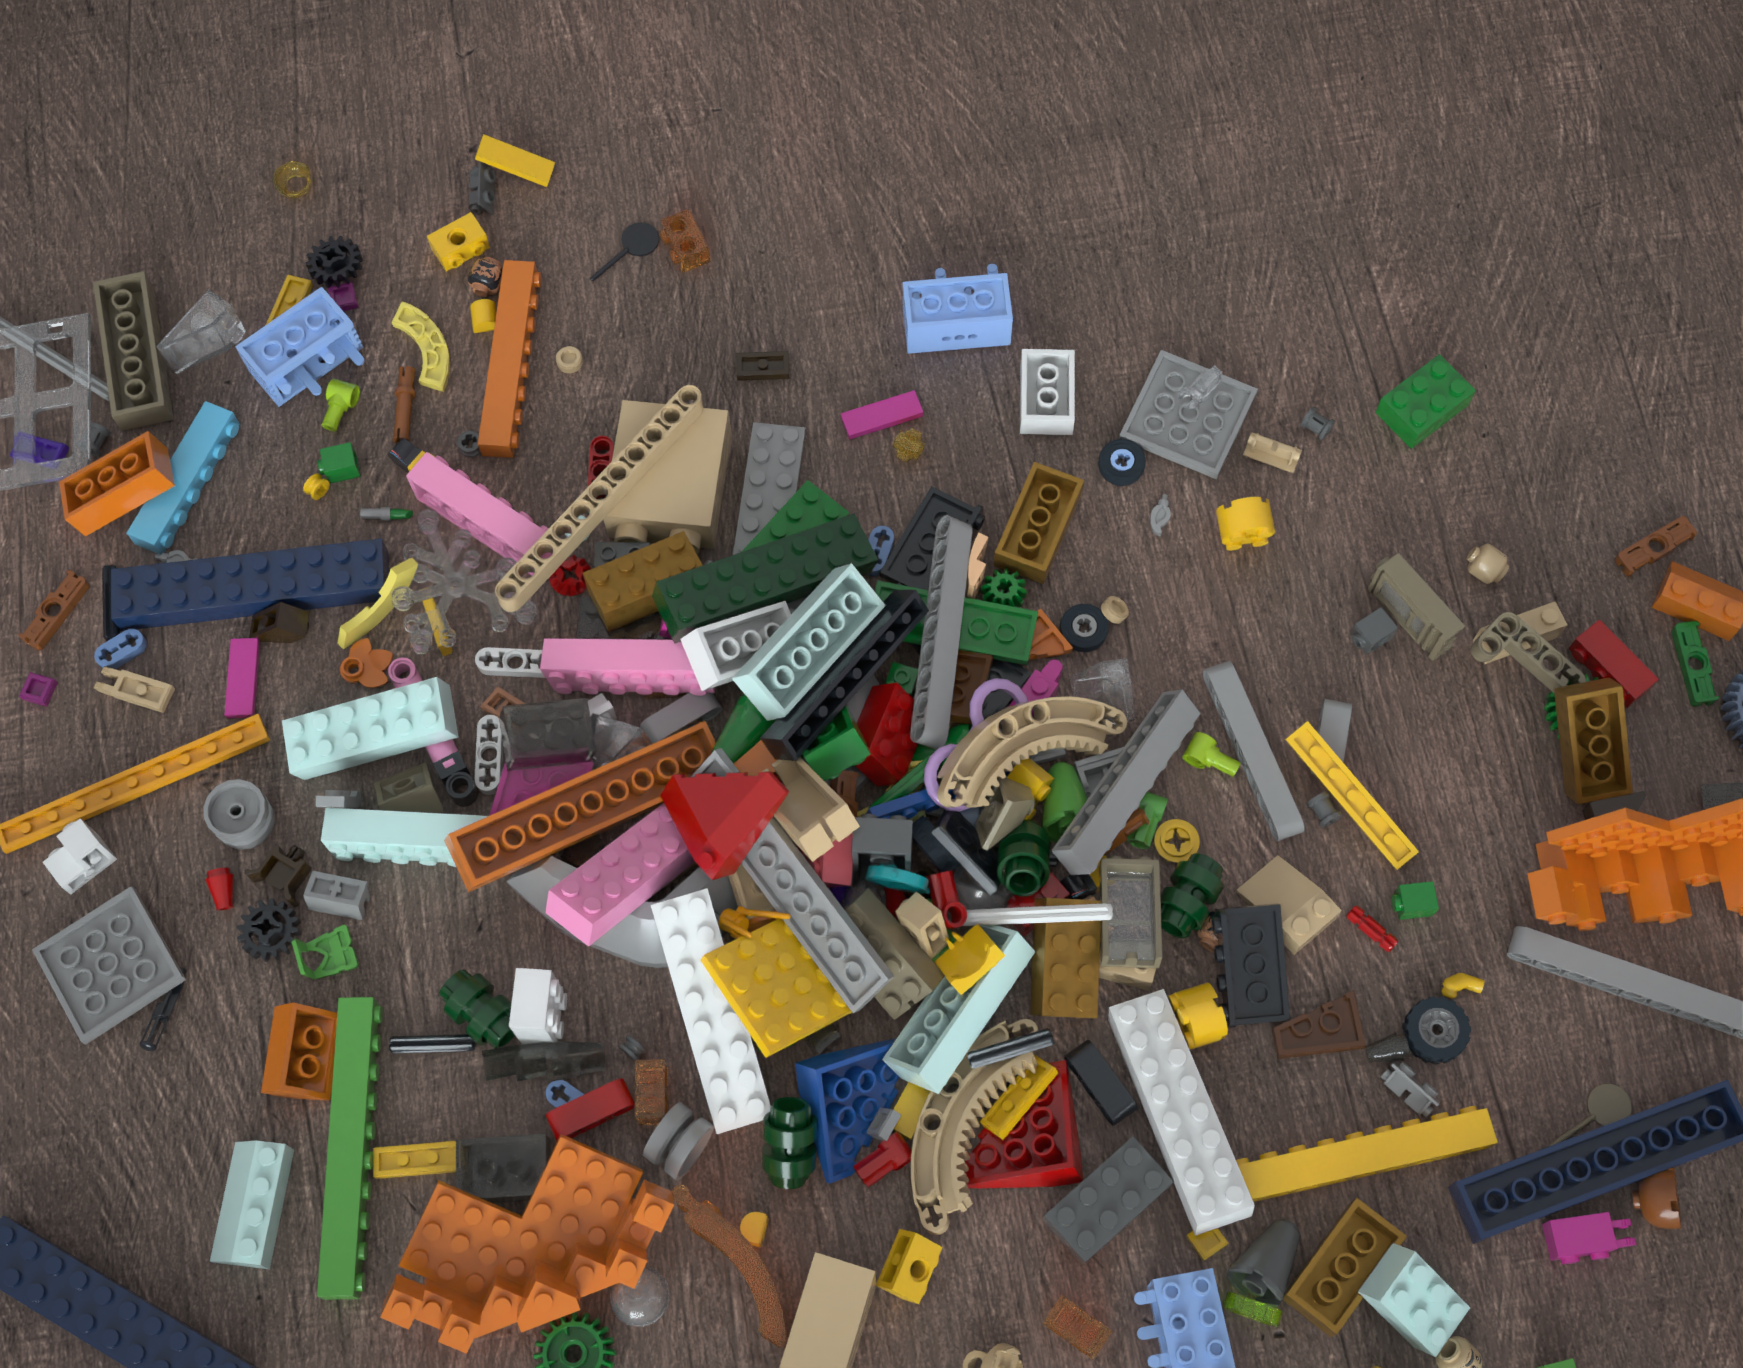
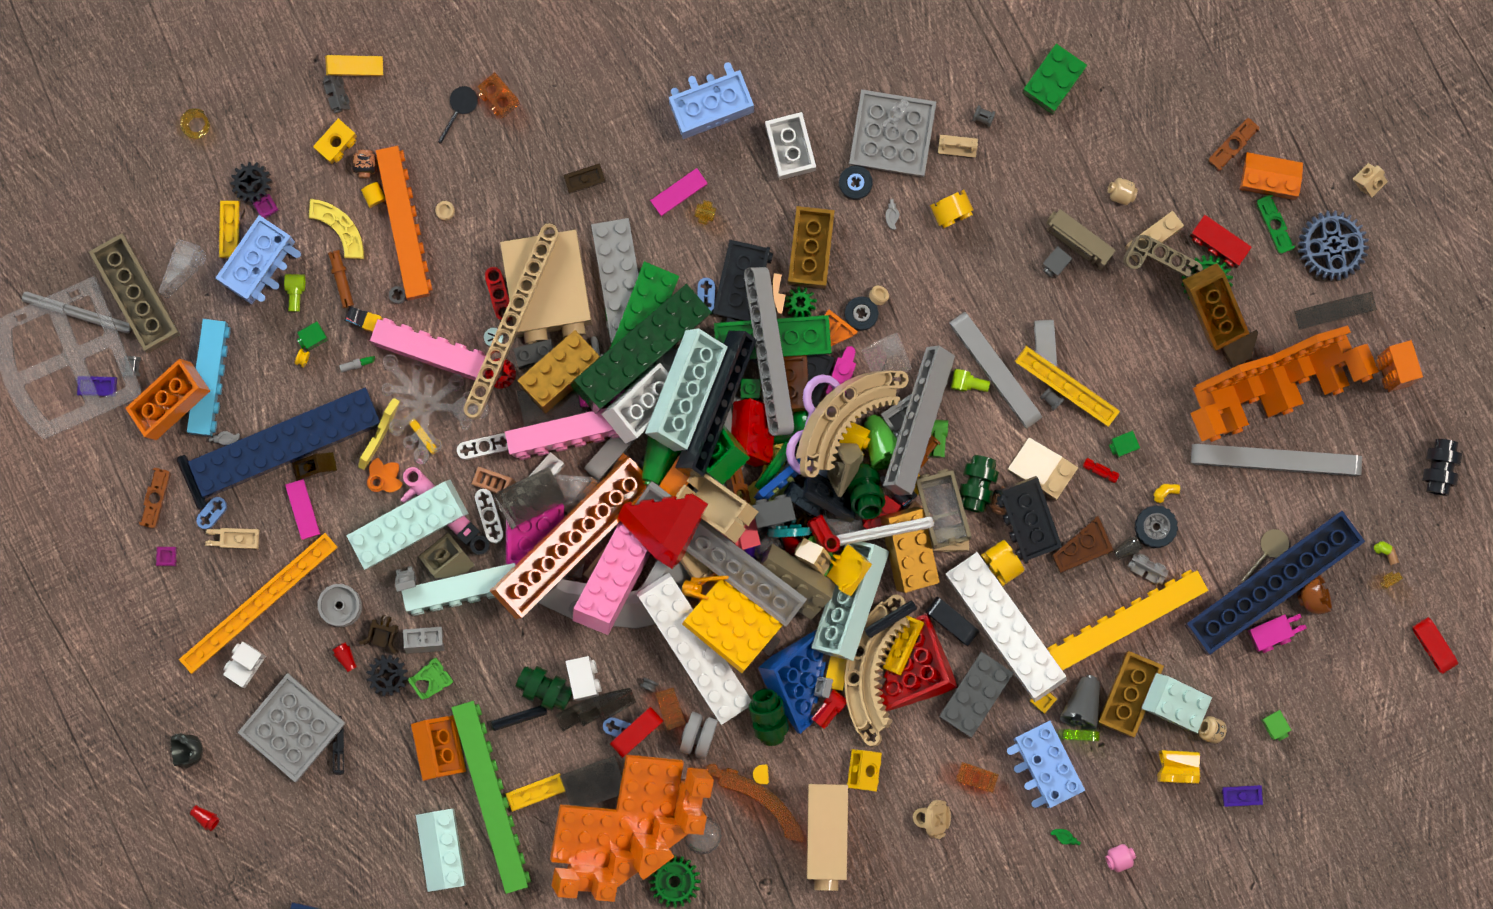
camera: 15 degrees left, 15 degrees up
(1185, 832) = (969, 450): yellow gear -> none

